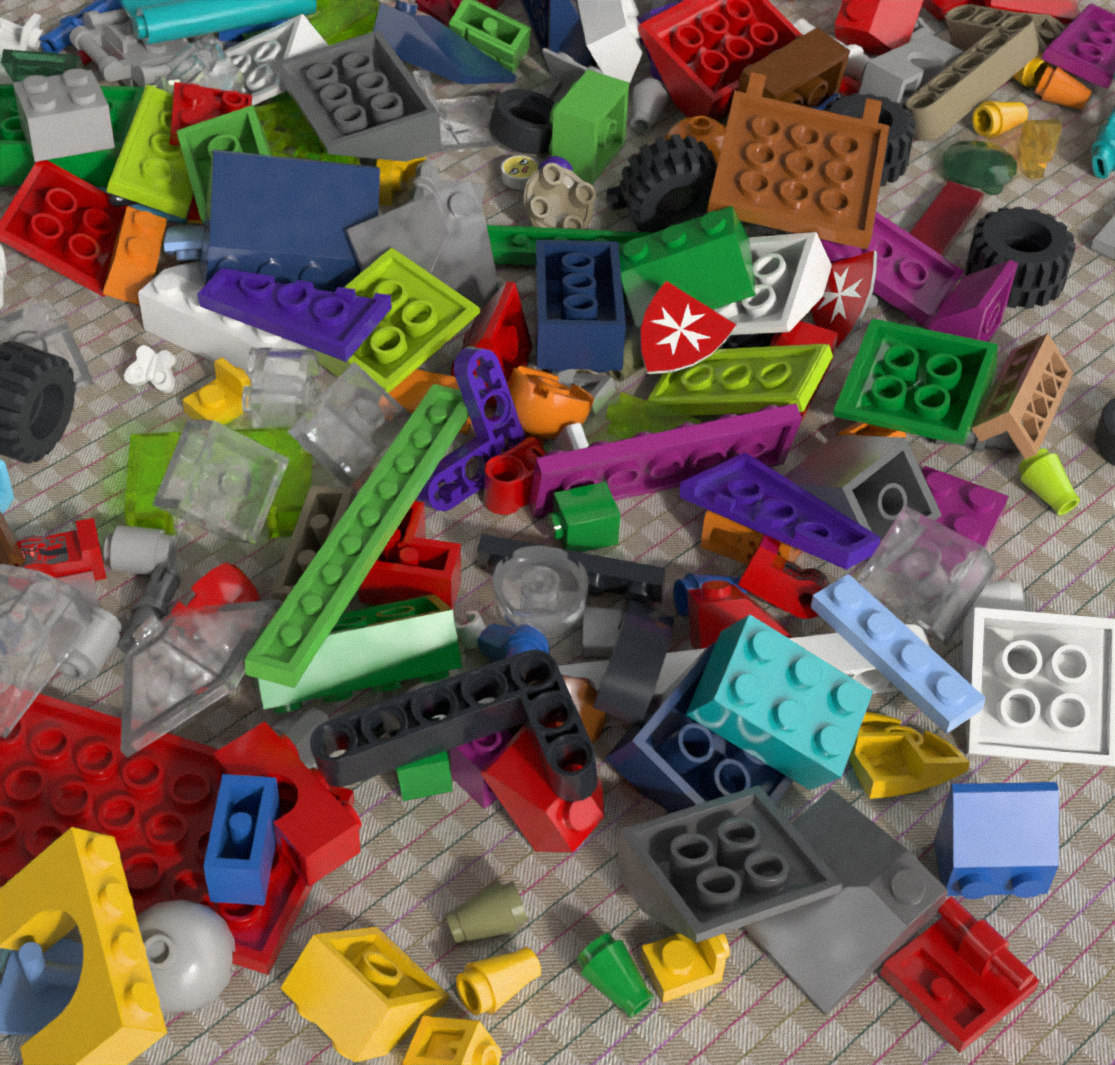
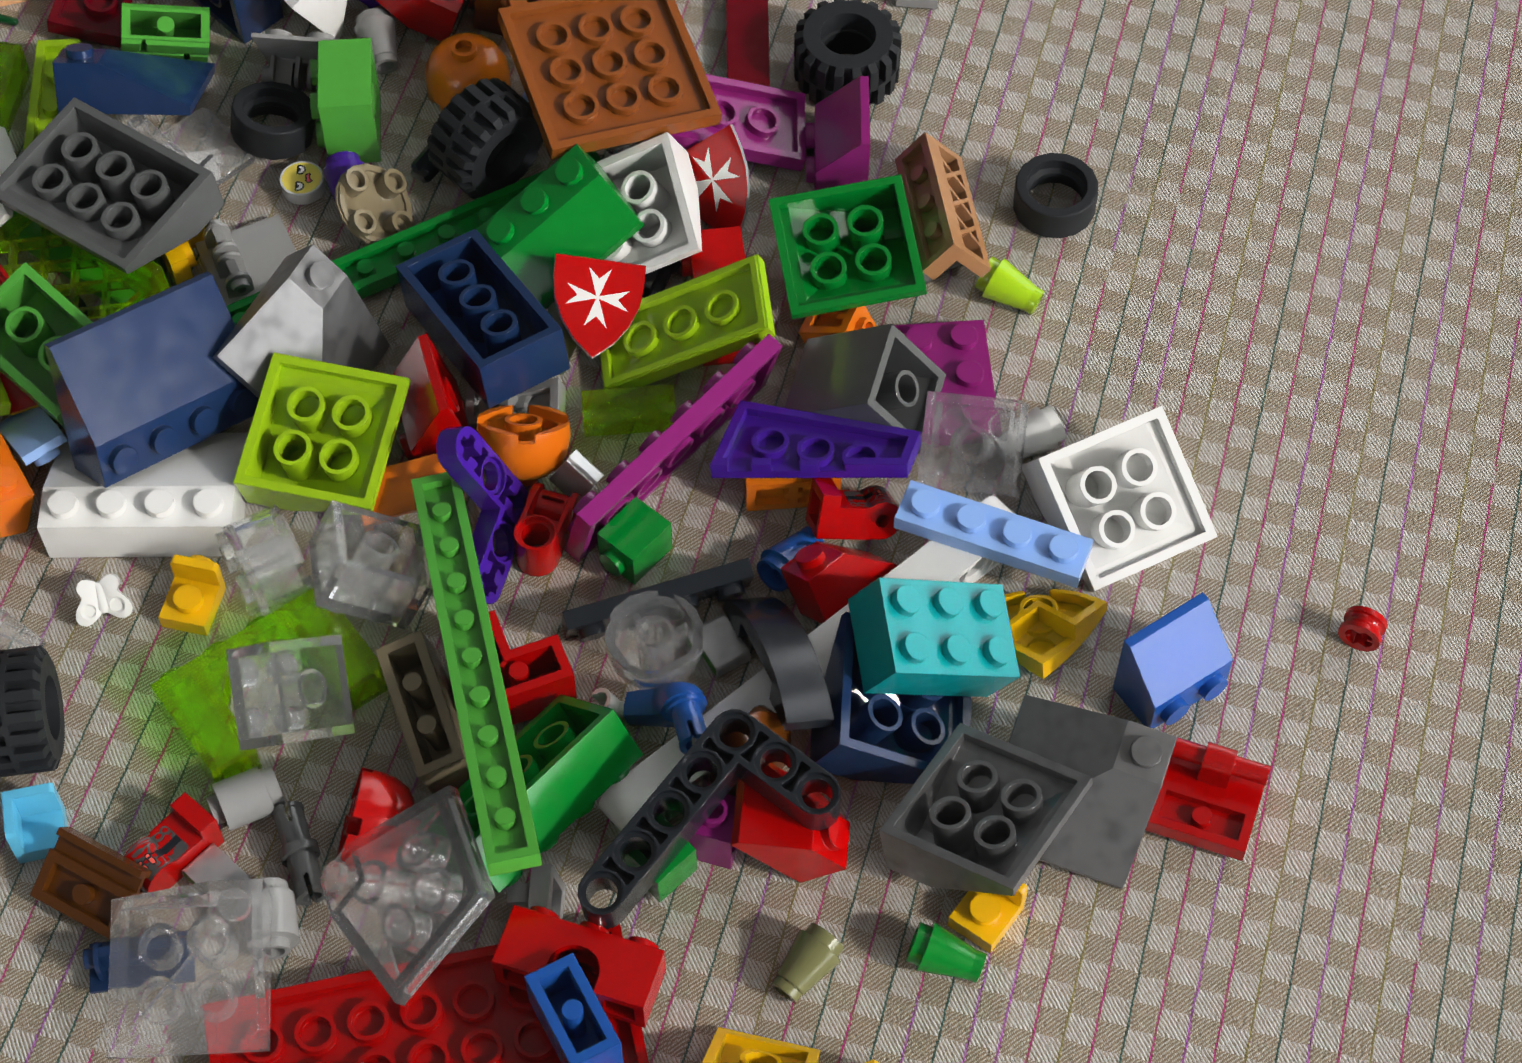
camera: 30 degrees left, 10 degrees up
(296, 311) = (247, 470): dark purple wing -> none
(495, 980) = (852, 1017): yellow cone -> none

